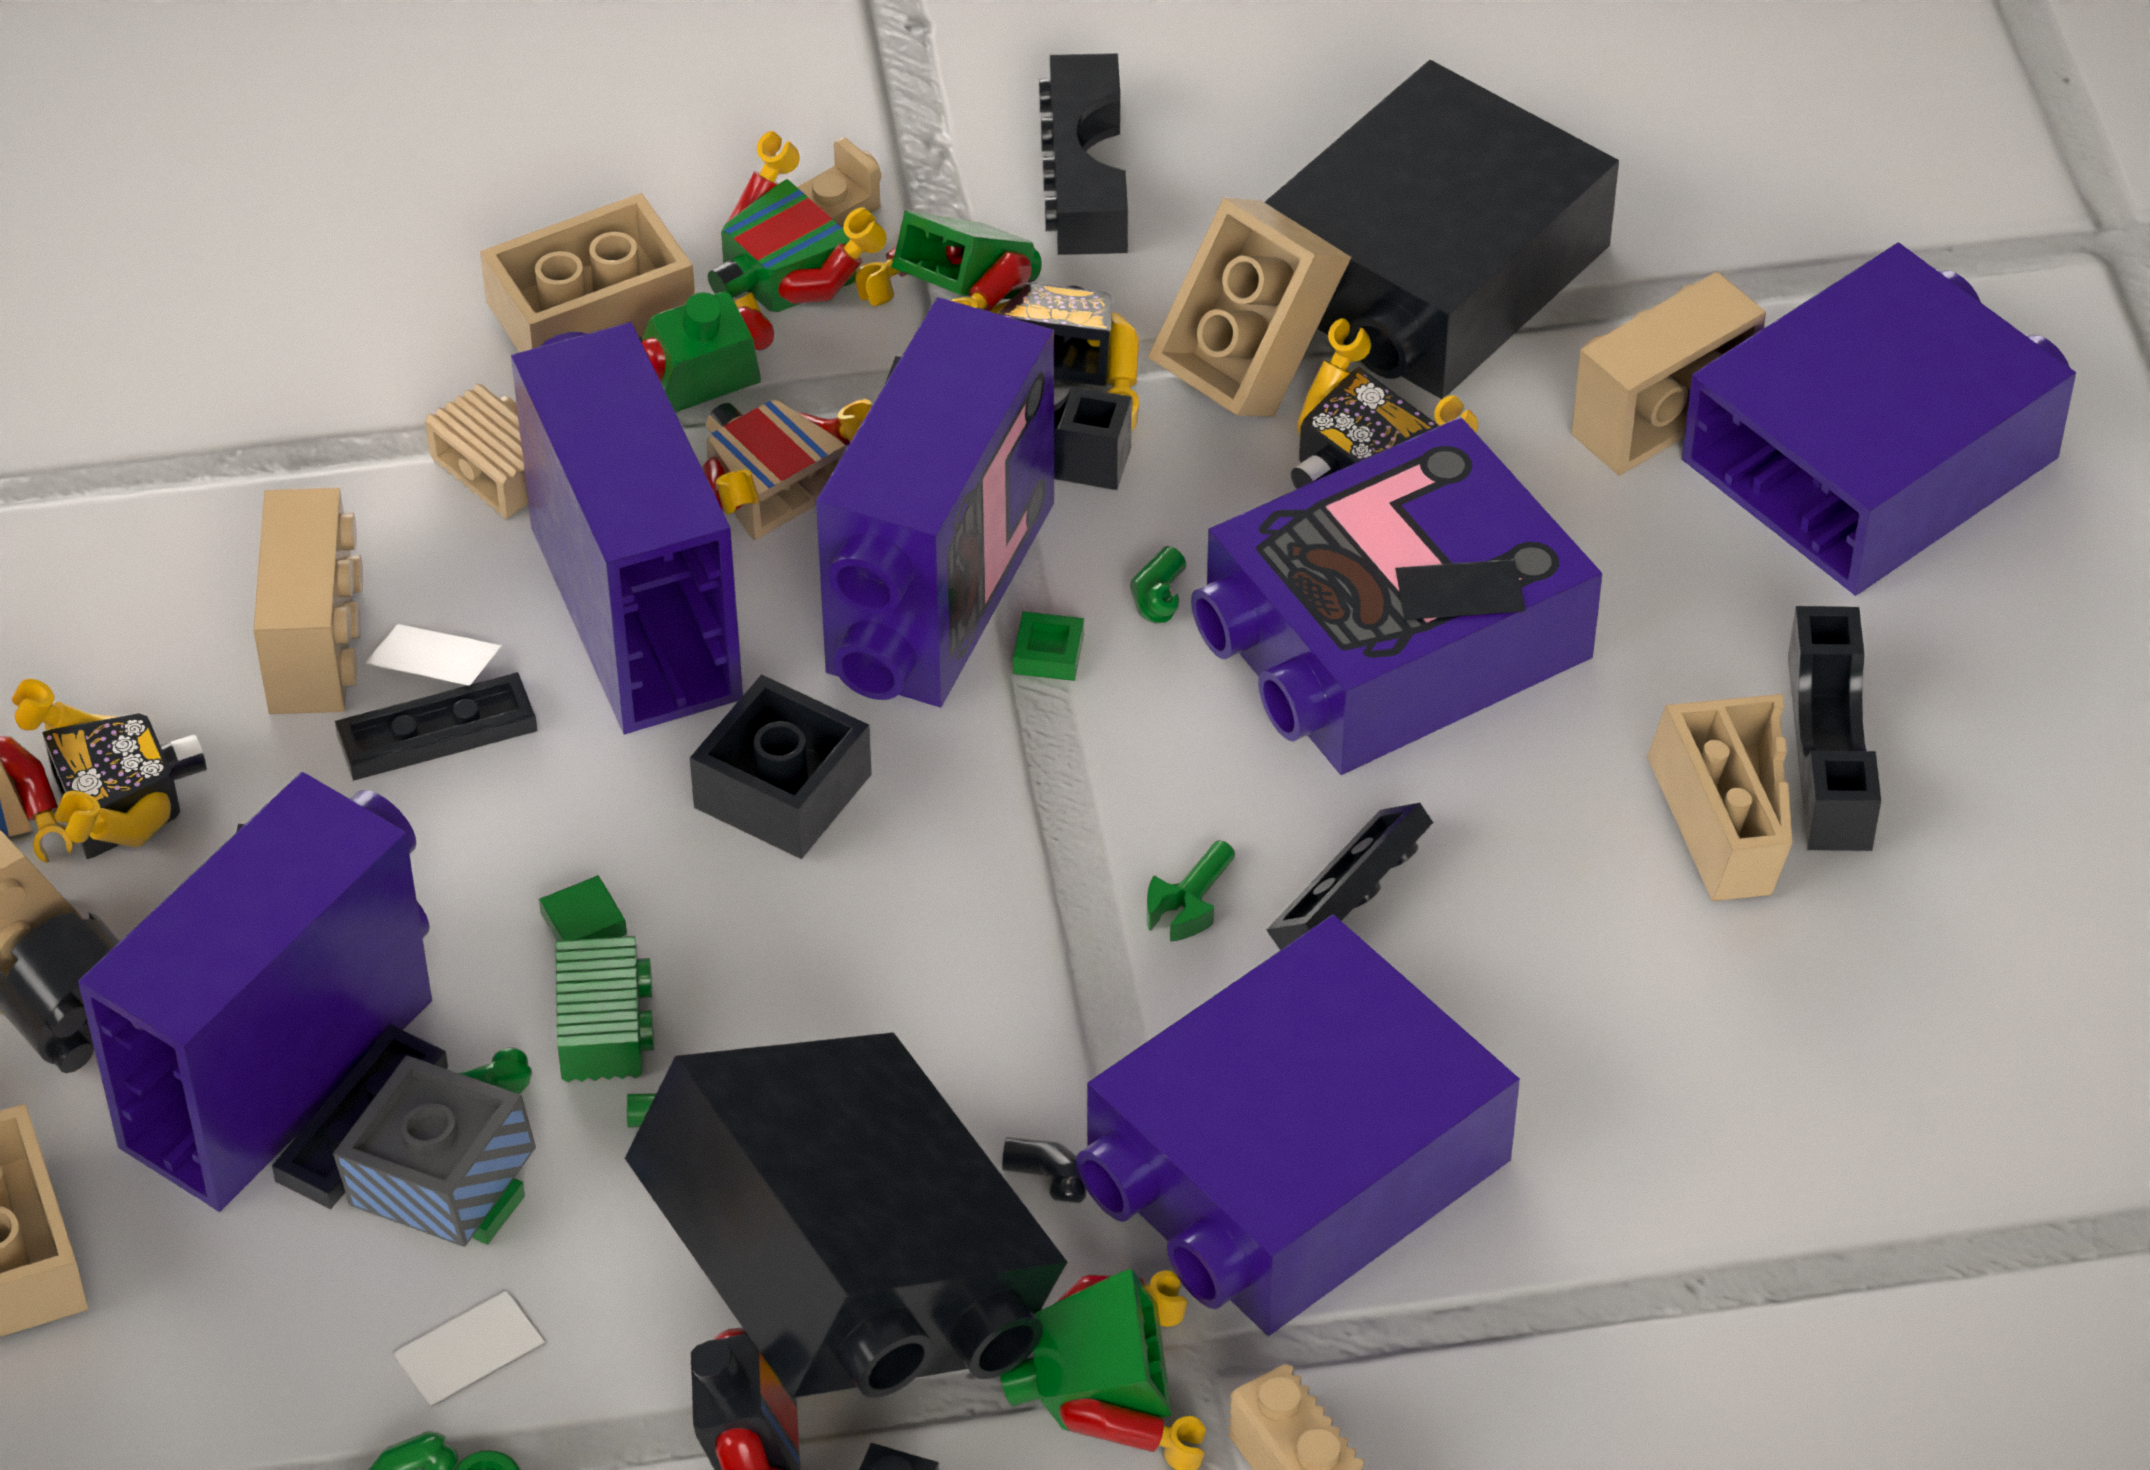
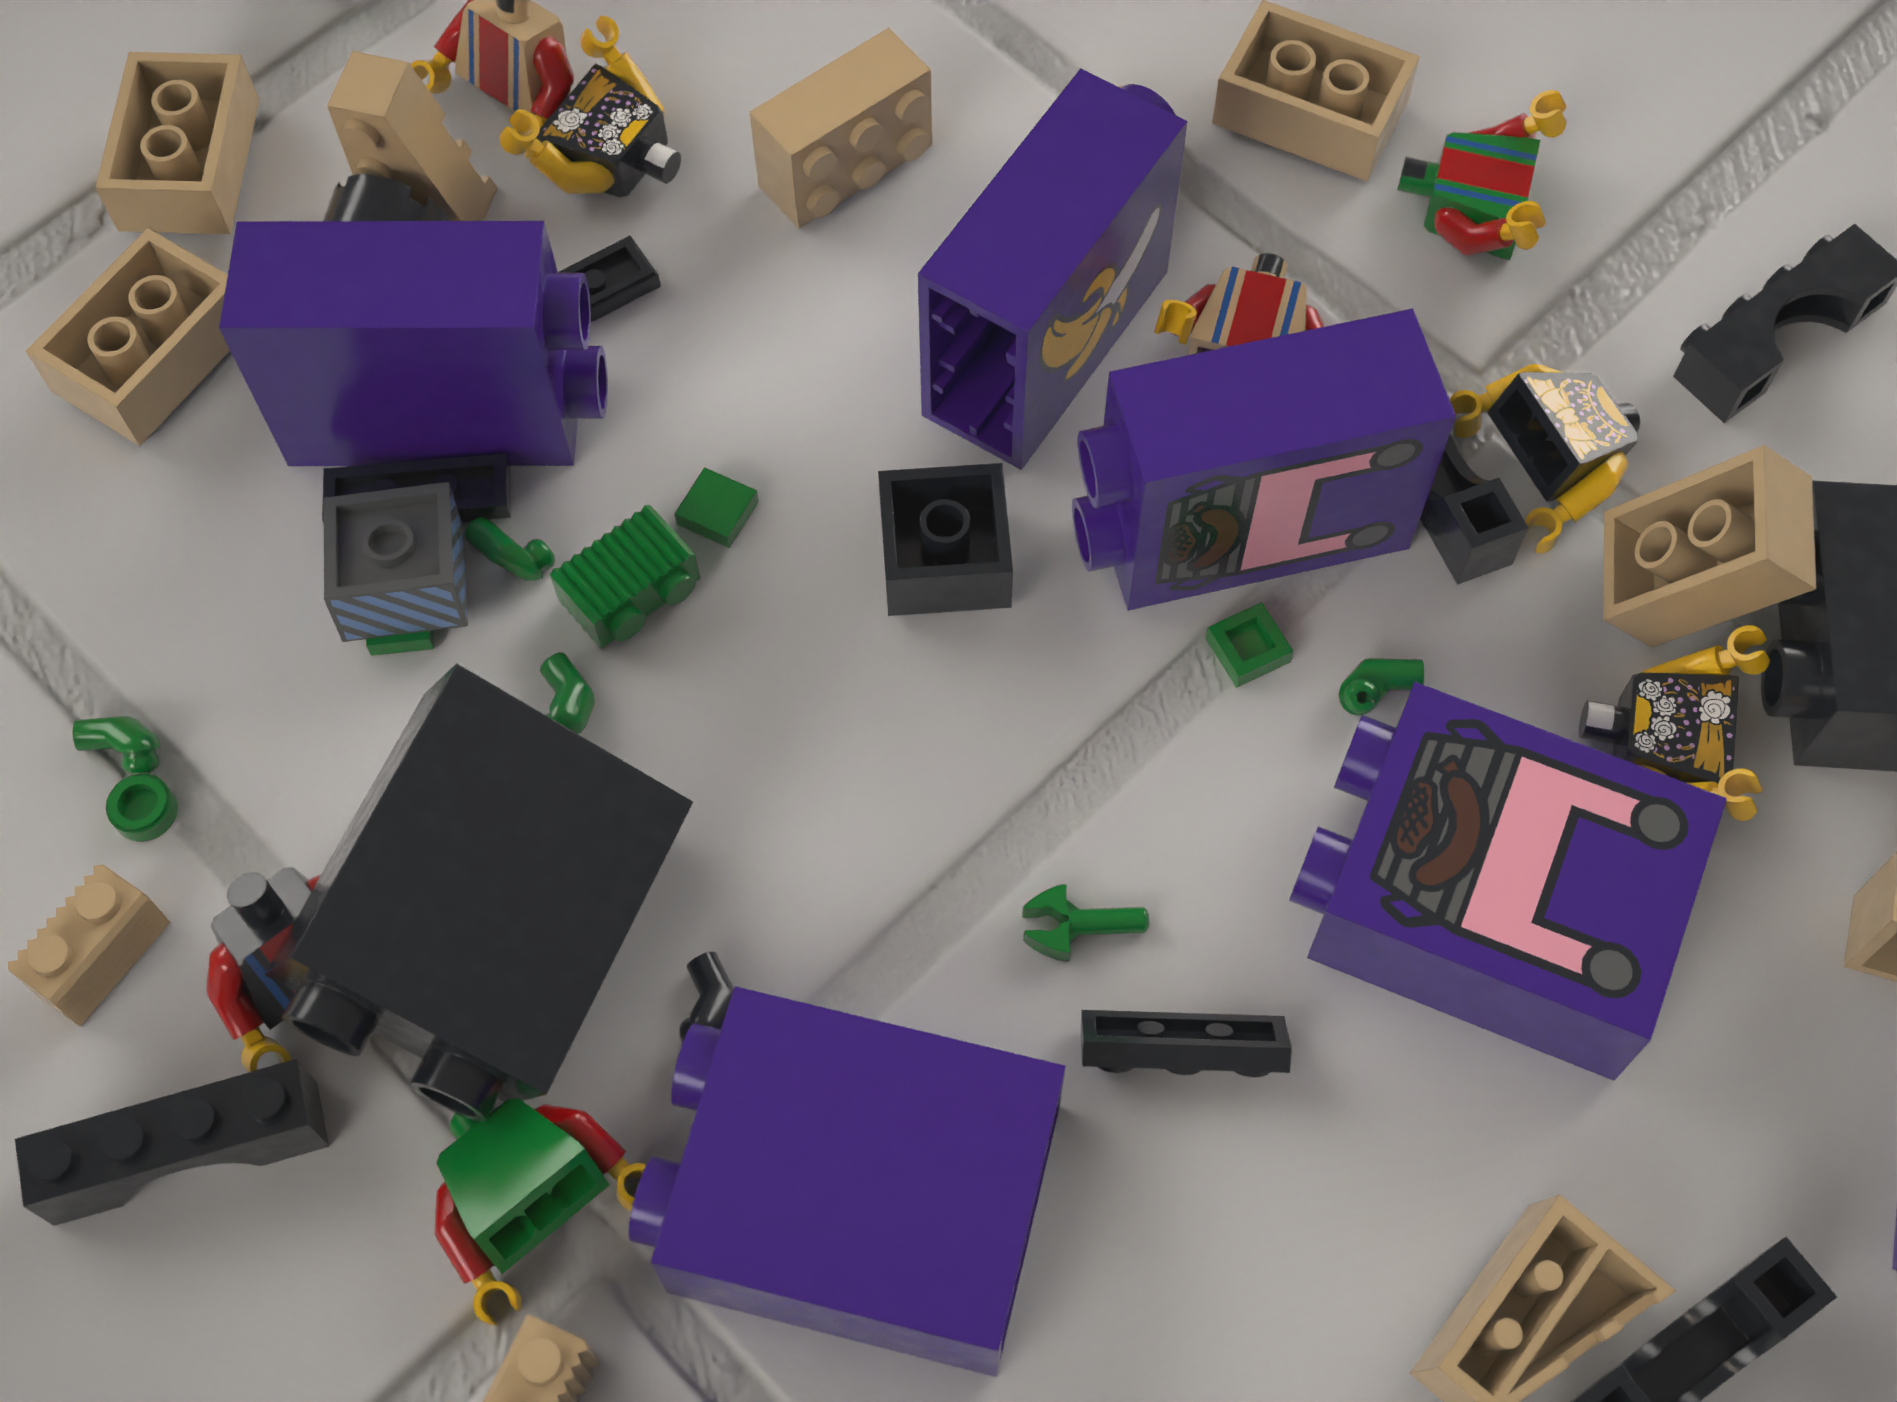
camera: 55 degrees right, 15 degrees up
(433, 654) = (886, 243): white sticker -> none
(435, 726) = (825, 292): black tile -> none
(468, 1348) = (269, 708): white sticker -> none
(707, 347) = (1316, 202): green torso -> none
(848, 184) = (1580, 187): tan bracket -> none
(955, 256) = (1569, 315): green torso -> none
(1460, 589) = (1523, 930): black sticker -> none

